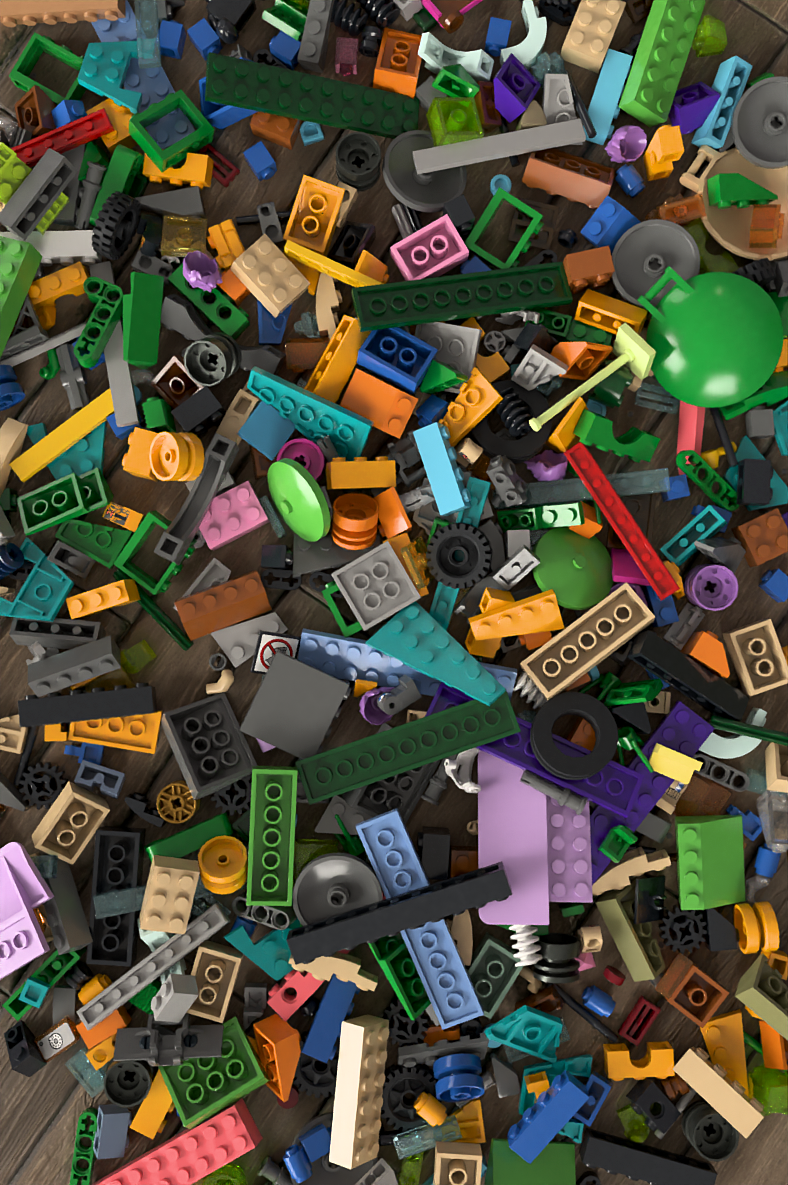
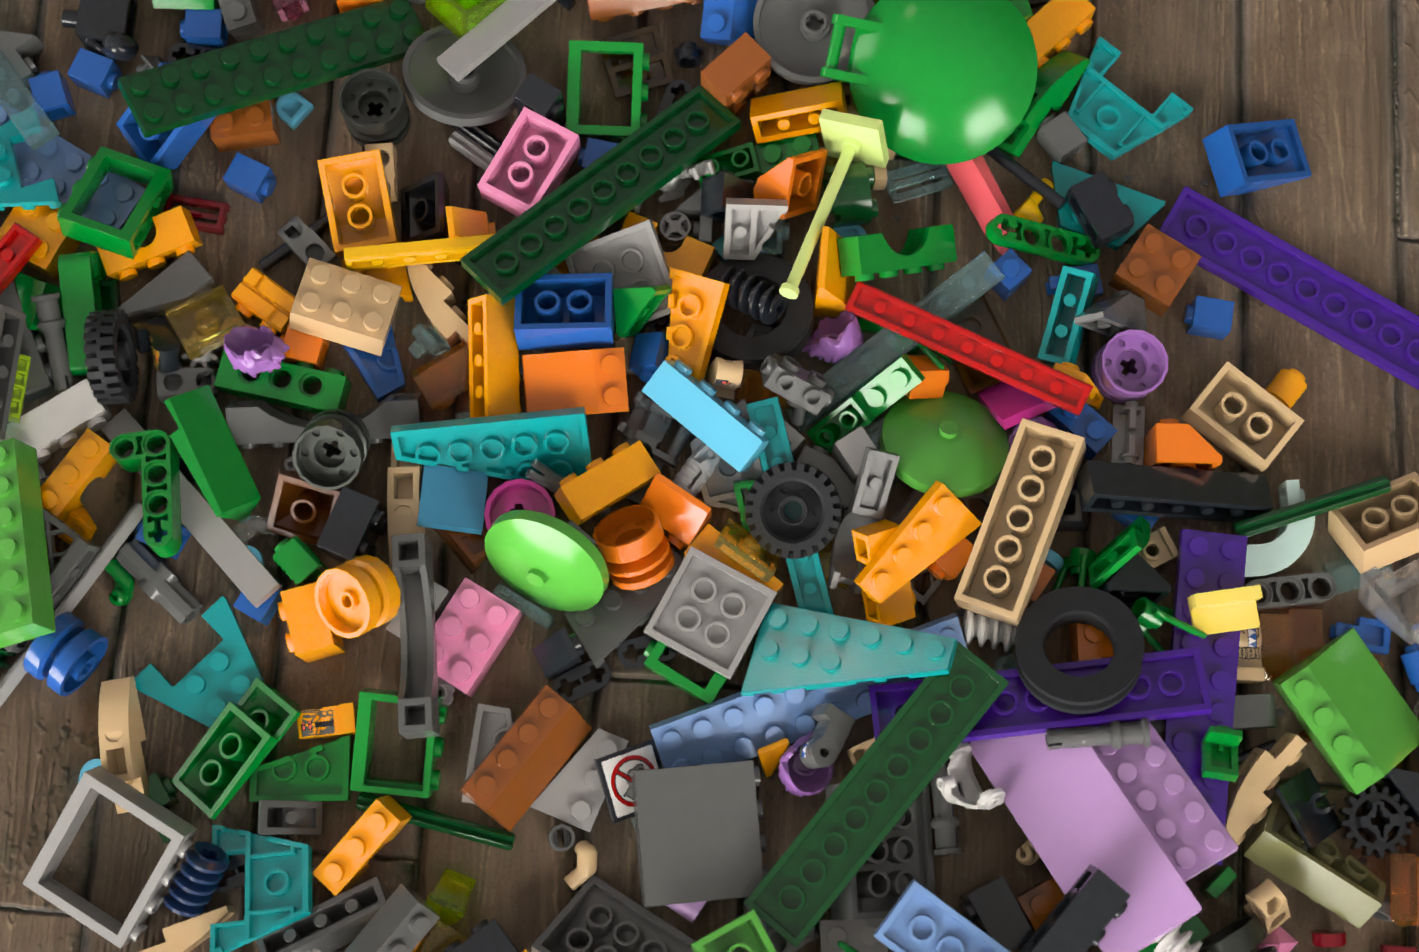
camera: 30 degrees left, 10 degrees down
(63, 437) = (190, 663): yellow tile -> none
(500, 181) = (563, 35): medium azure tile -> none

